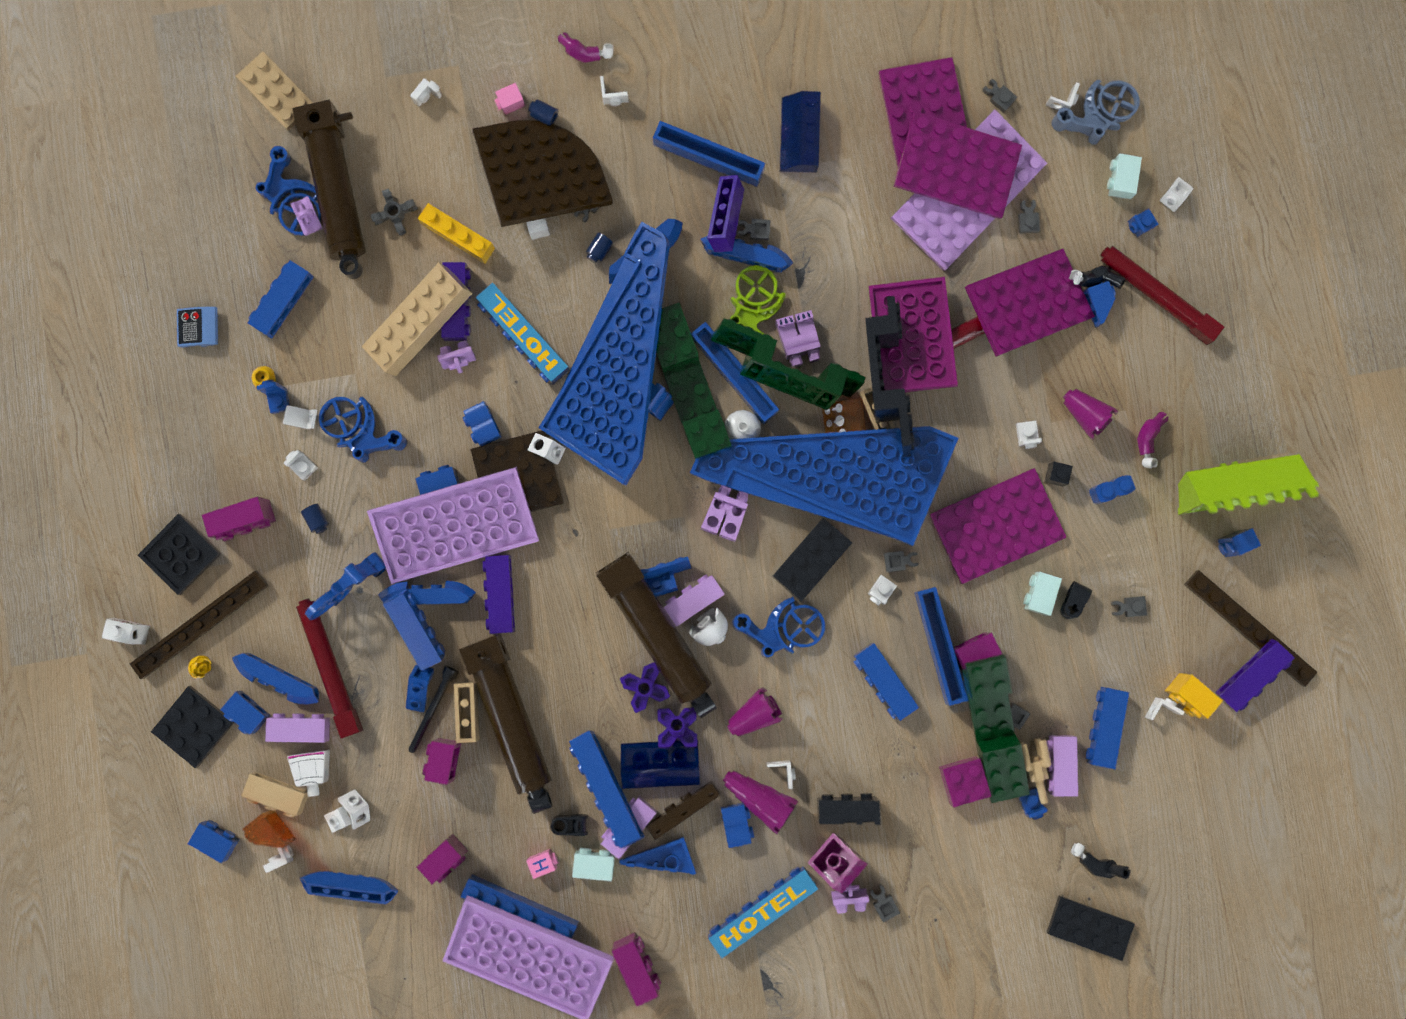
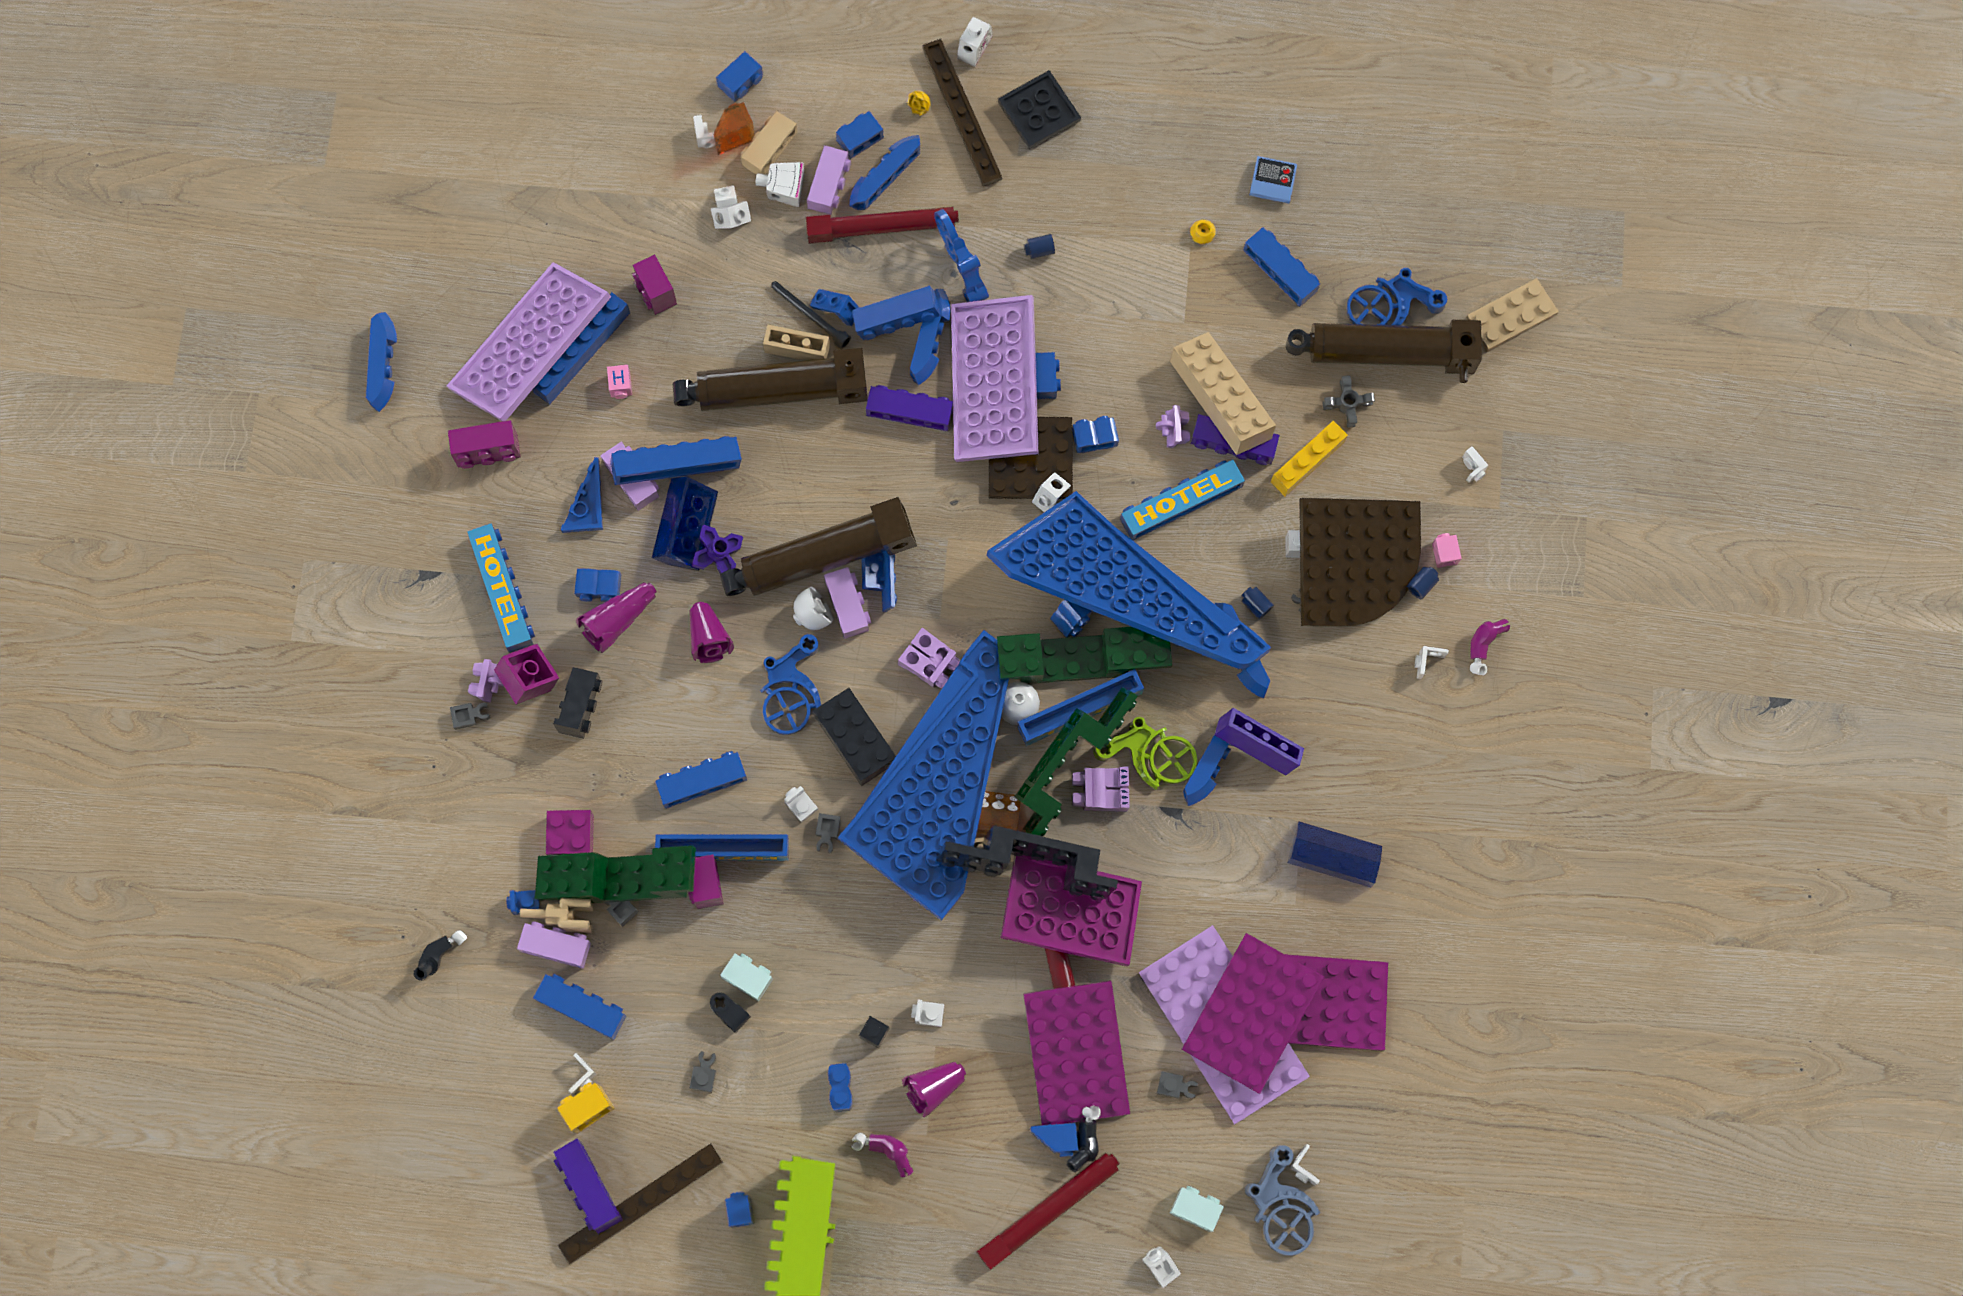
camera: 100 degrees right, 10 degrees down
(192, 727) = (860, 82): black plate -> none
(239, 518) = (1058, 172): magenta brick -> none
(276, 395) = (1178, 239): blue bracket -> none
(300, 417) = (1150, 255): white bracket -> none
(300, 464) = (1101, 246): white bracket -> none
(306, 216) = (1363, 310): lavender hips -> none
(349, 887) = (654, 191): blue brick -> none
(364, 442) = (1107, 312): blue piece -> none
(442, 761) = (753, 307): magenta brick -> none
(571, 825) = (649, 422): black piece -> none
(593, 864) = (602, 430): light aqua brick -> none
(635, 683) = (761, 523): dark purple plant -> none
(674, 813) = (632, 540): dark brown piece -> none
(708, 153) = (1333, 744): blue brick -> none
(758, 229) = (1236, 777): dark grey plate -> none
(790, 771) = (636, 654): white bracket -> none
(997, 526) = (835, 951): magenta plate -> none
(1002, 97) = (1324, 1095): dark grey plate -> none
(1090, 928) = (372, 928): black plate -> none
(1142, 223) = (1137, 1216): blue bracket -> none

